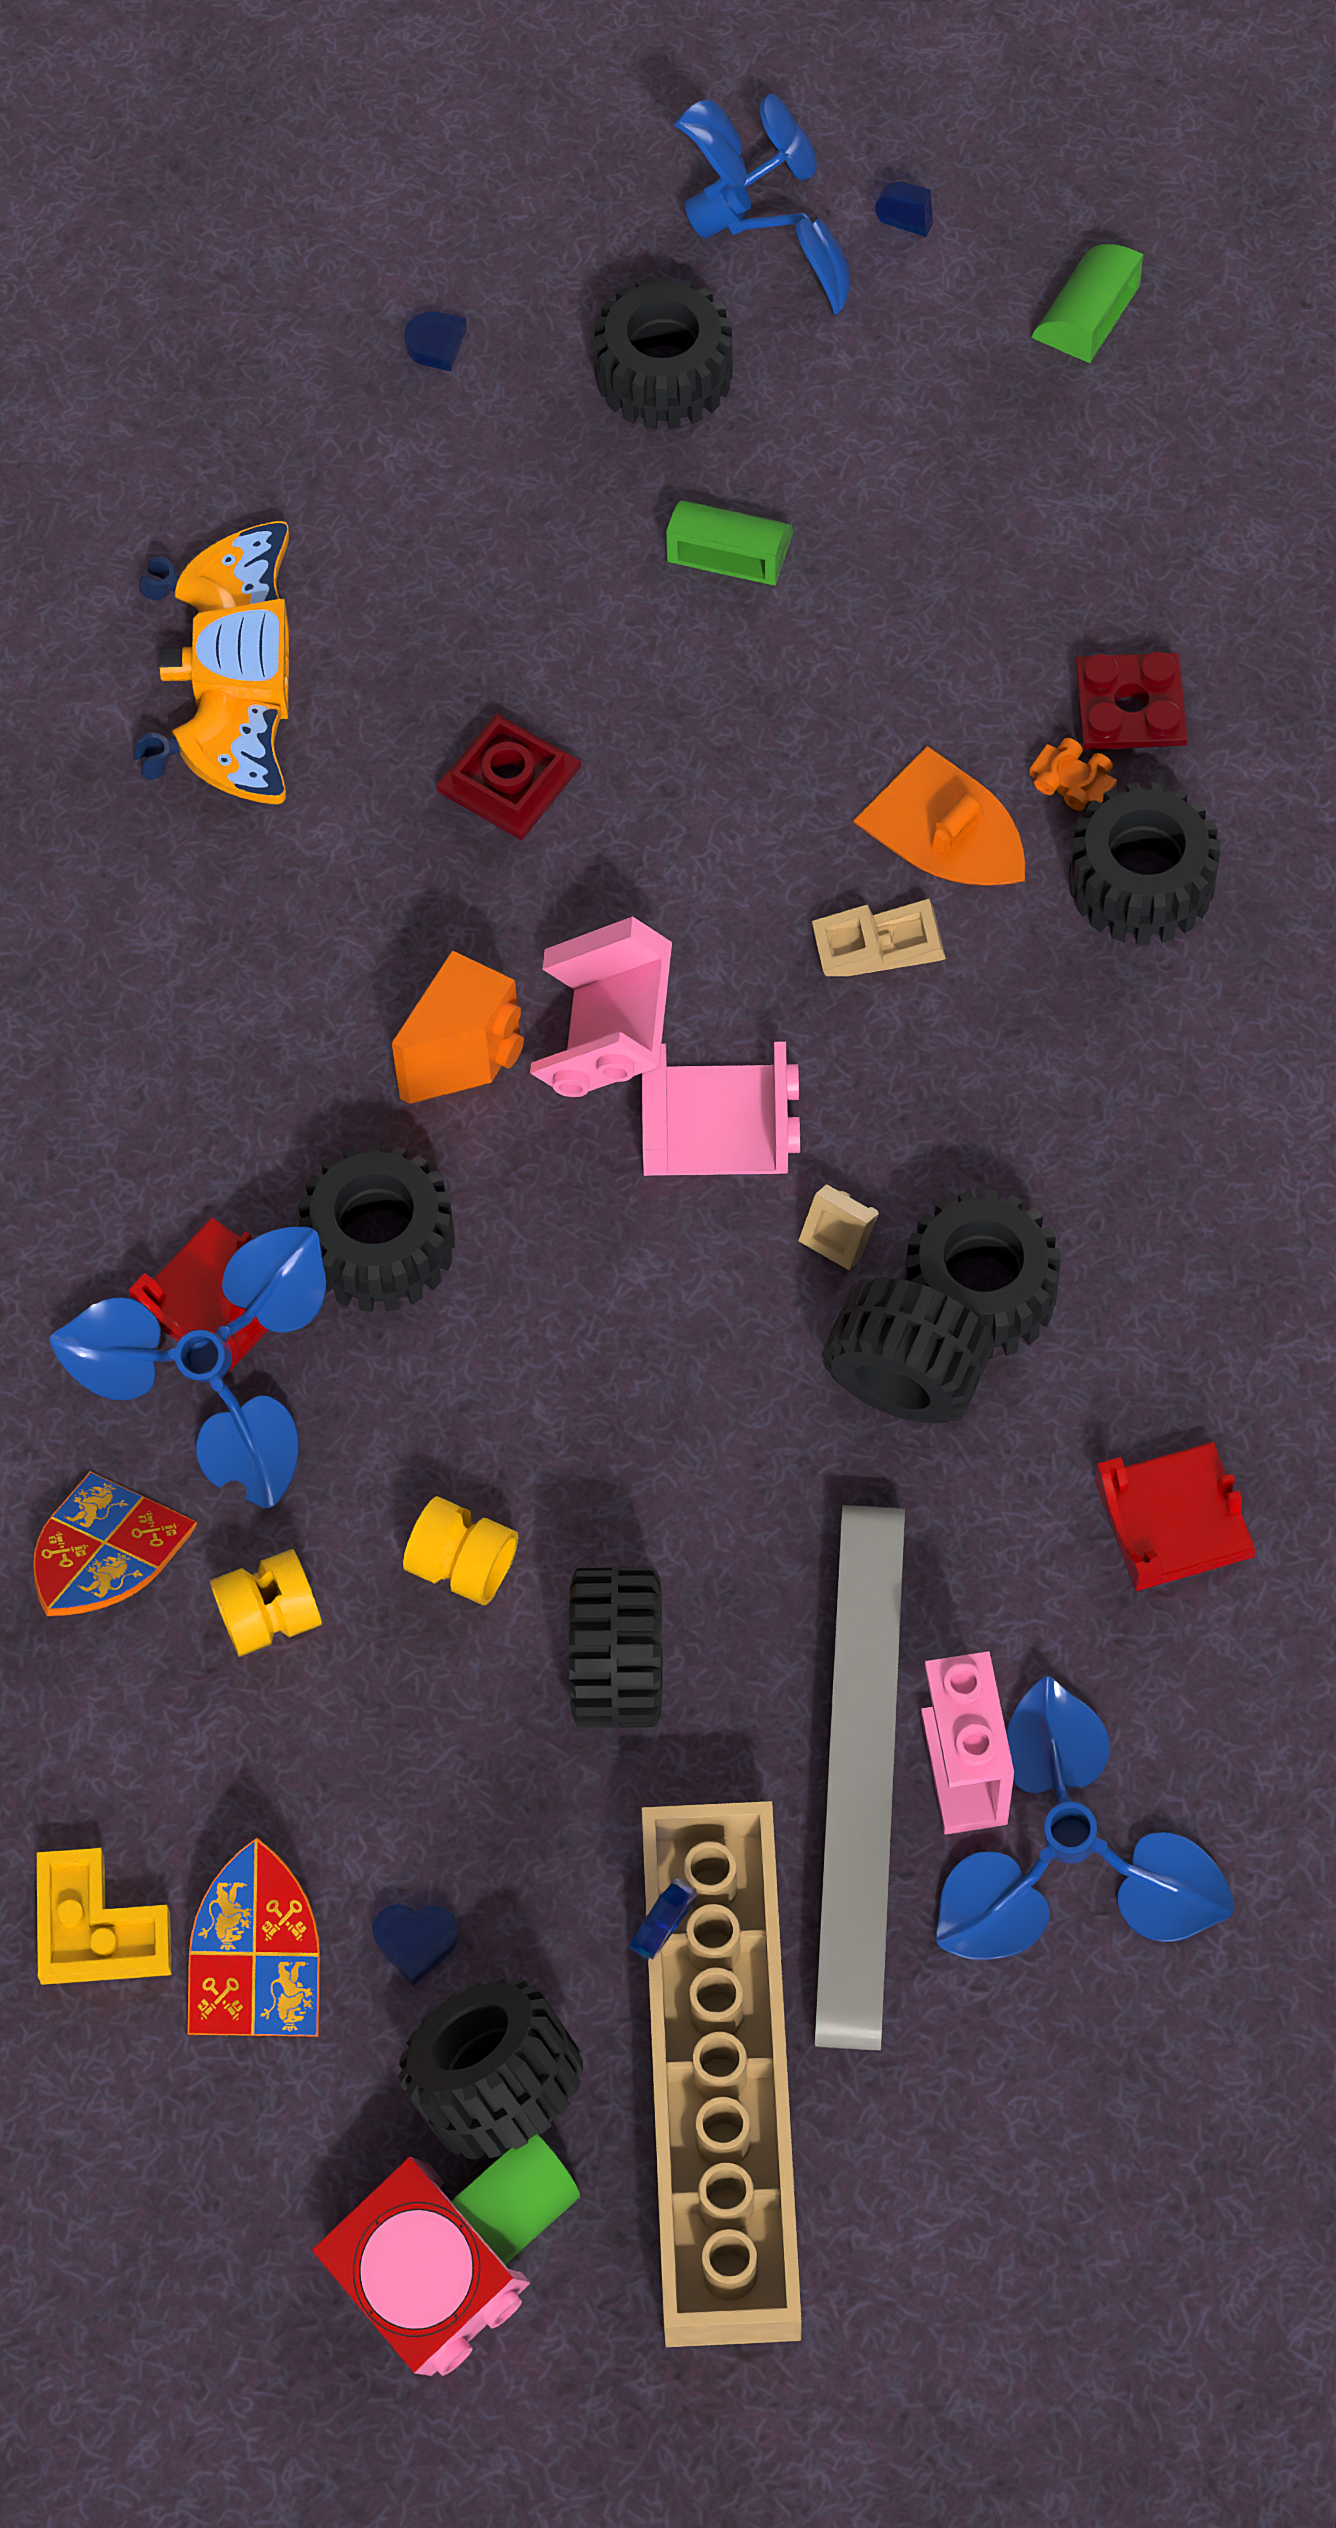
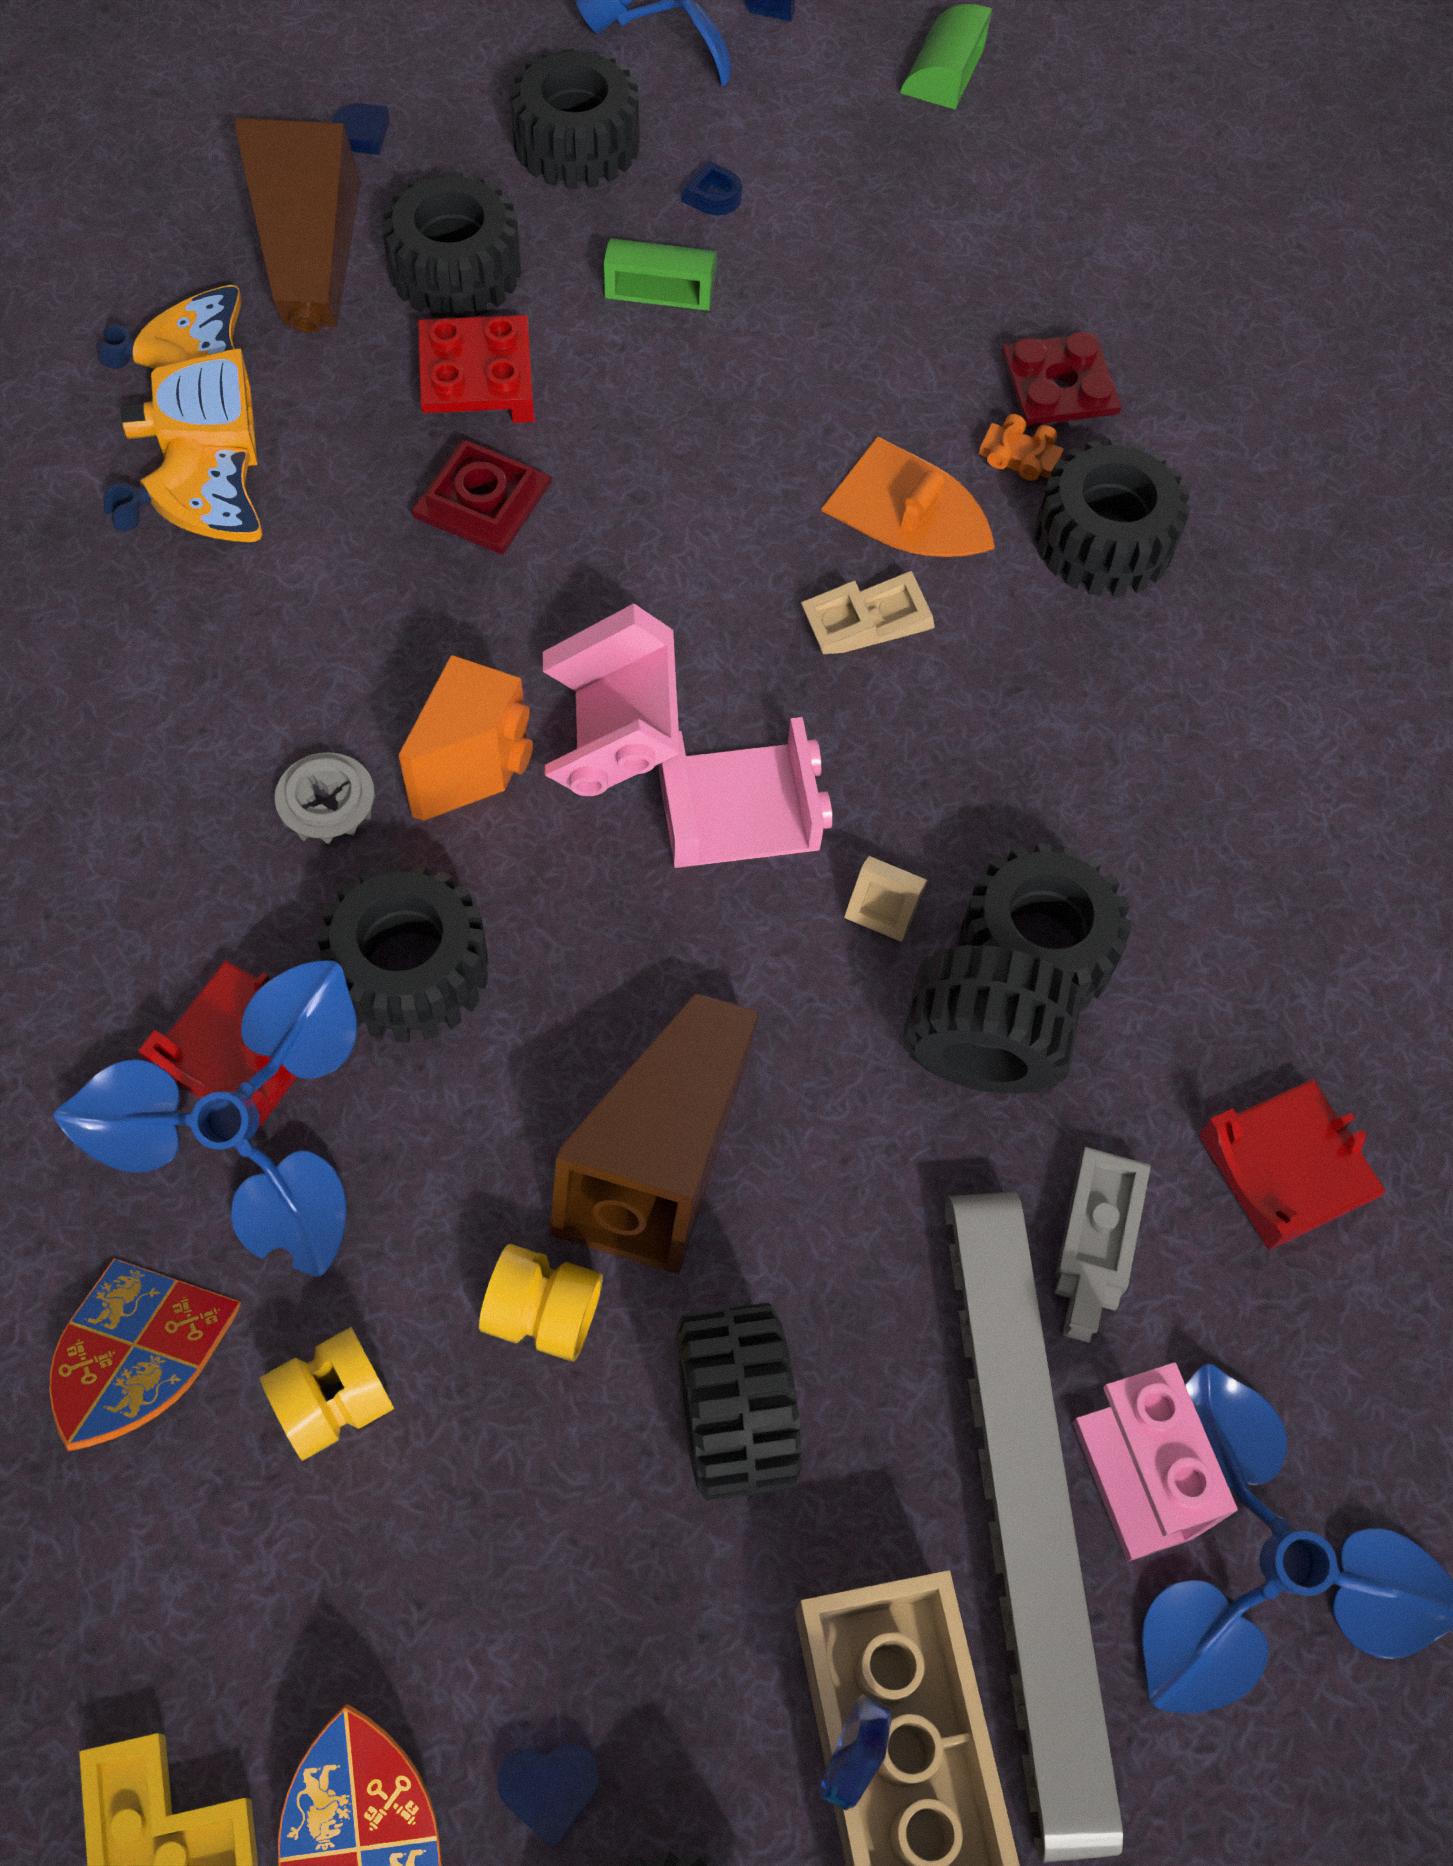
camera: 15 degrees left, 0 degrees up
(330, 1049) = (332, 773): none -> light grey gear
(363, 445) = (304, 212): none -> reddish brown slope
(512, 530) = (452, 244): none -> black tyre
(521, 633) = (476, 365): none -> red piece
(578, 1426) = (648, 1149): none -> reddish brown slope
(803, 445) = (713, 190): none -> clear blue tile
(977, 1558) = (1099, 1238): none -> light grey hinge

